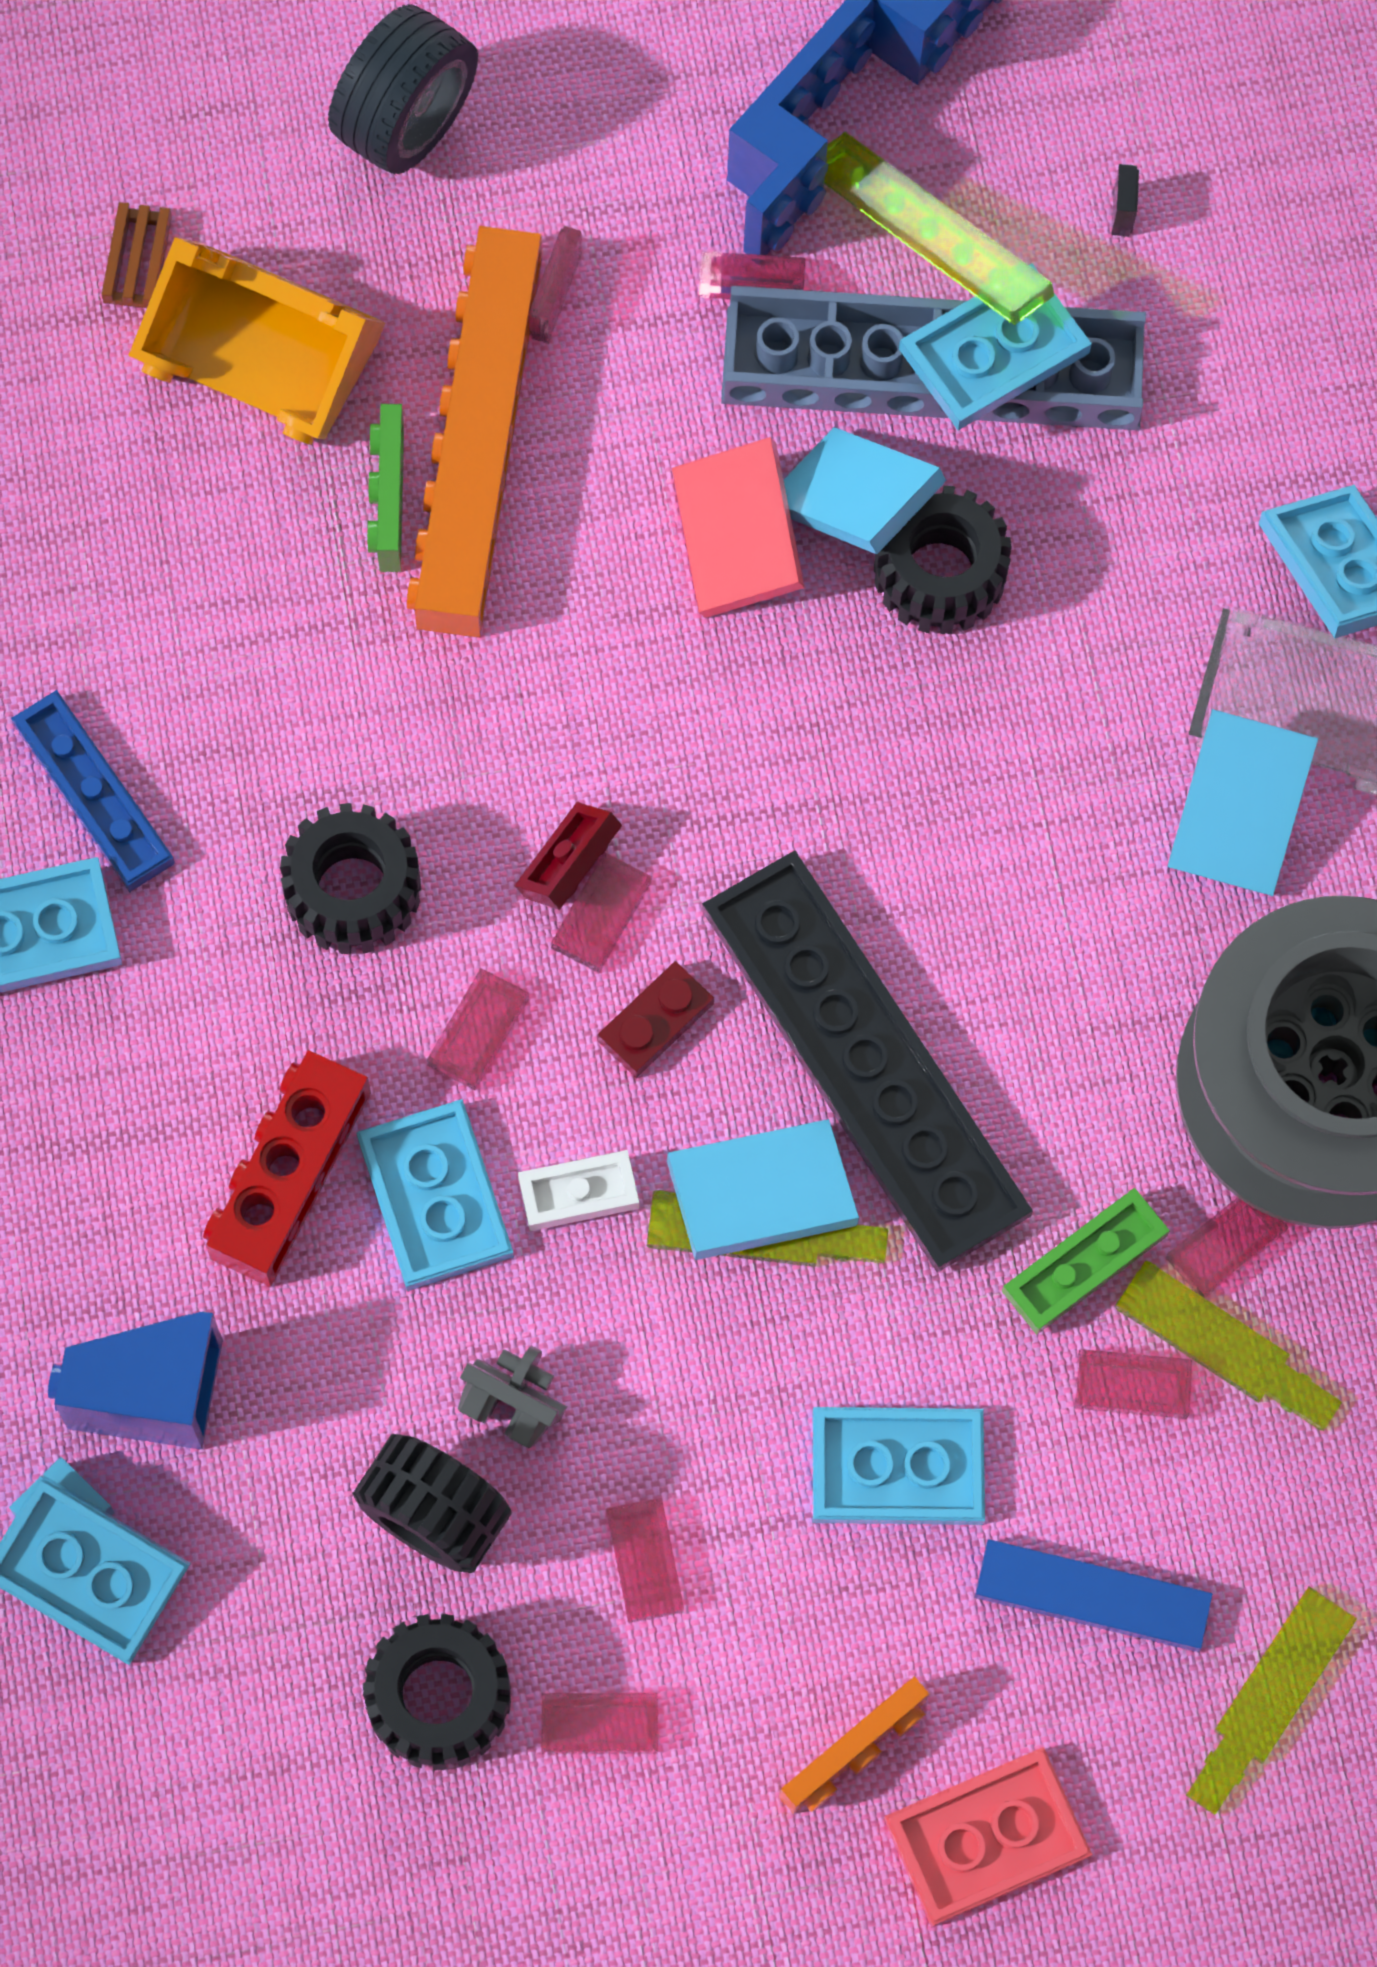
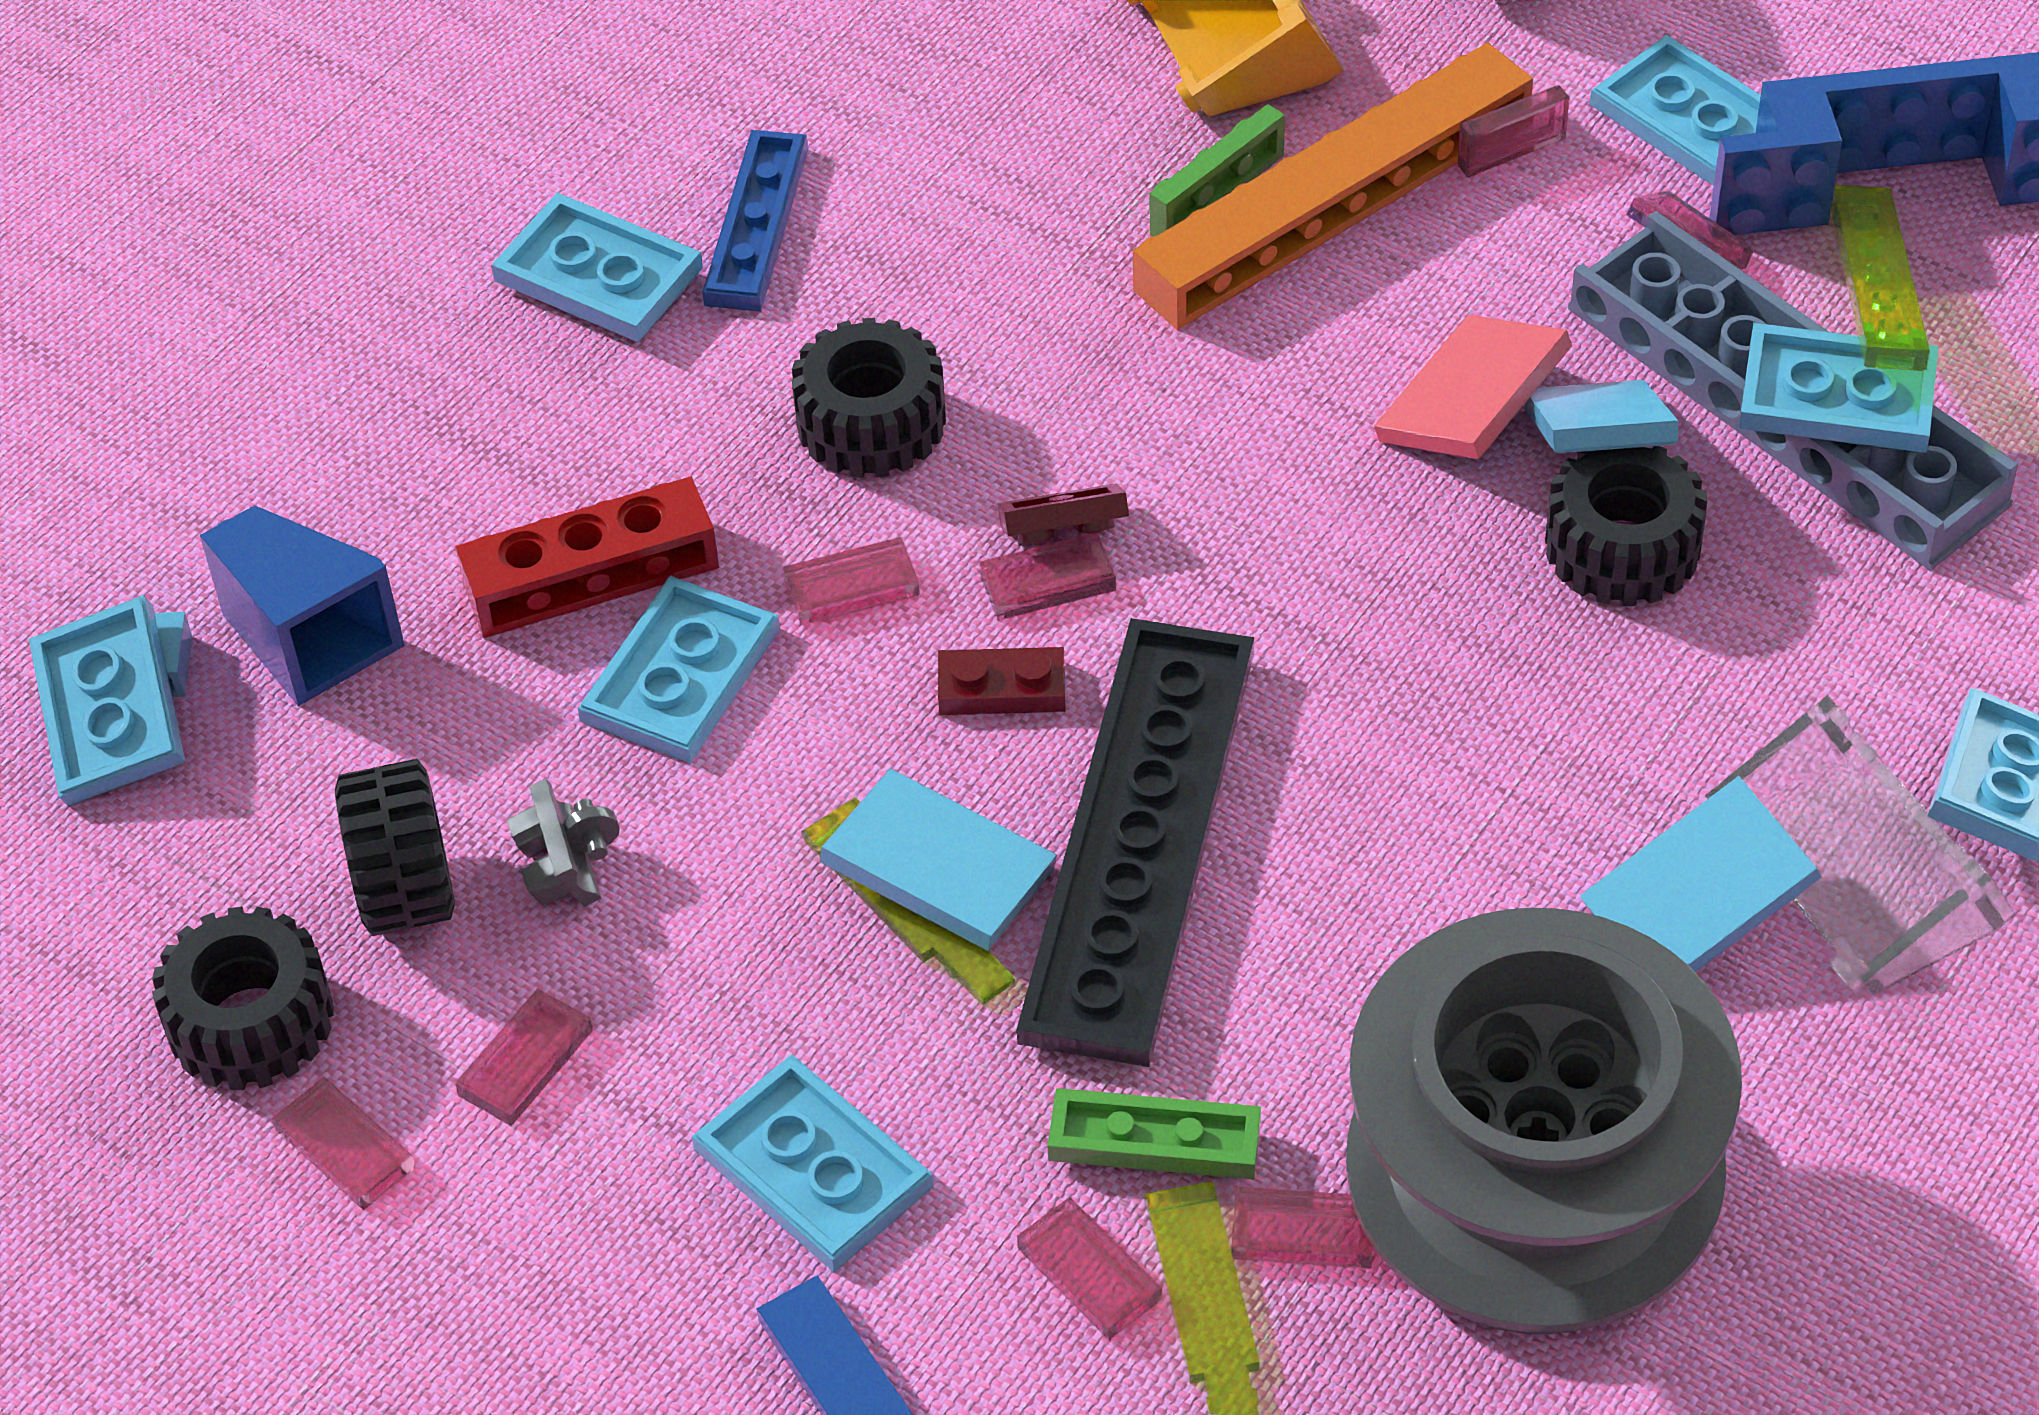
camera: 50 degrees right, 20 degrees down
(578, 1190) = (791, 746): white plate -> none
(648, 164) = (1678, 104): none -> medium azure tile
(856, 1748) = (515, 1331): orange plate -> none

